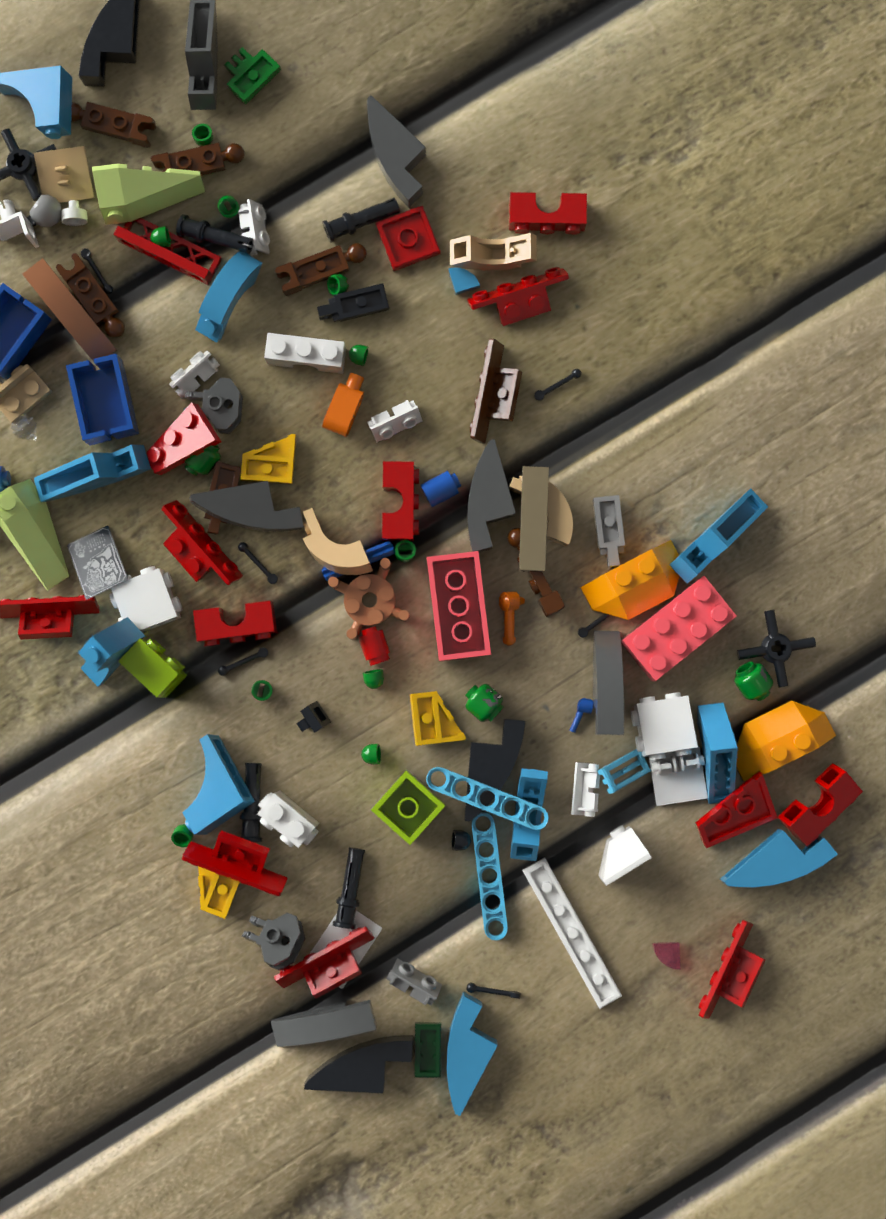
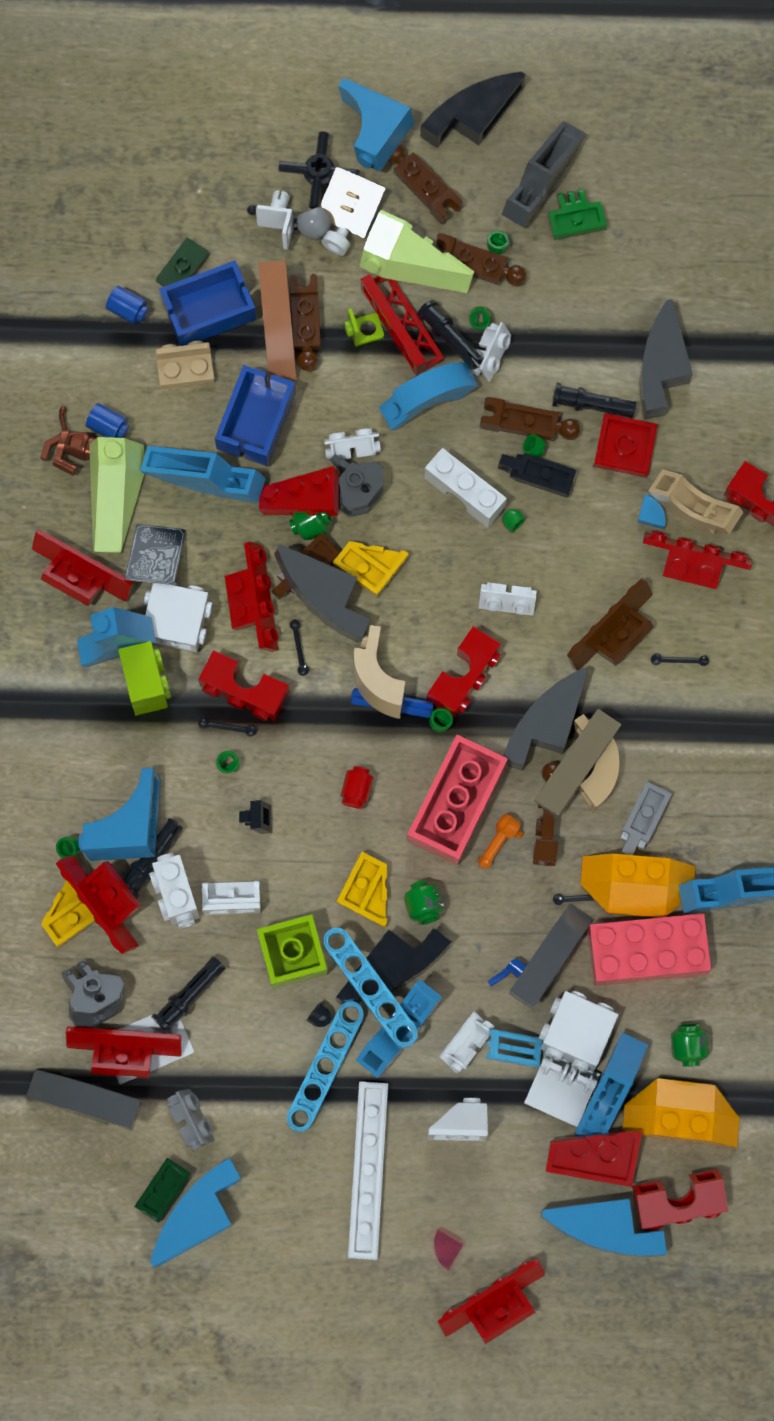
camera: 30 degrees right, 10 degrees down
(25, 427) = (169, 398): clear plate -> none
(86, 254) = (324, 283): black hinge -> none
(132, 276) = (353, 326): none -> lime bracket
(161, 237) = (402, 307): green hinge -> none
(333, 792) = (231, 898): none -> white hinge
(344, 406) = (470, 557): orange piece -> none
(361, 1066) = (92, 1164): black slope -> none
(366, 584) = (374, 728): nougat plate -> none
(371, 754) = (289, 884): green hinge -> none
(373, 678) = (336, 818): green hinge -> none
(440, 488) = (510, 684): blue brick -> none
(471, 988) = (240, 1160): black hinge -> none
(772, 657) = (741, 1025): black bar -> none

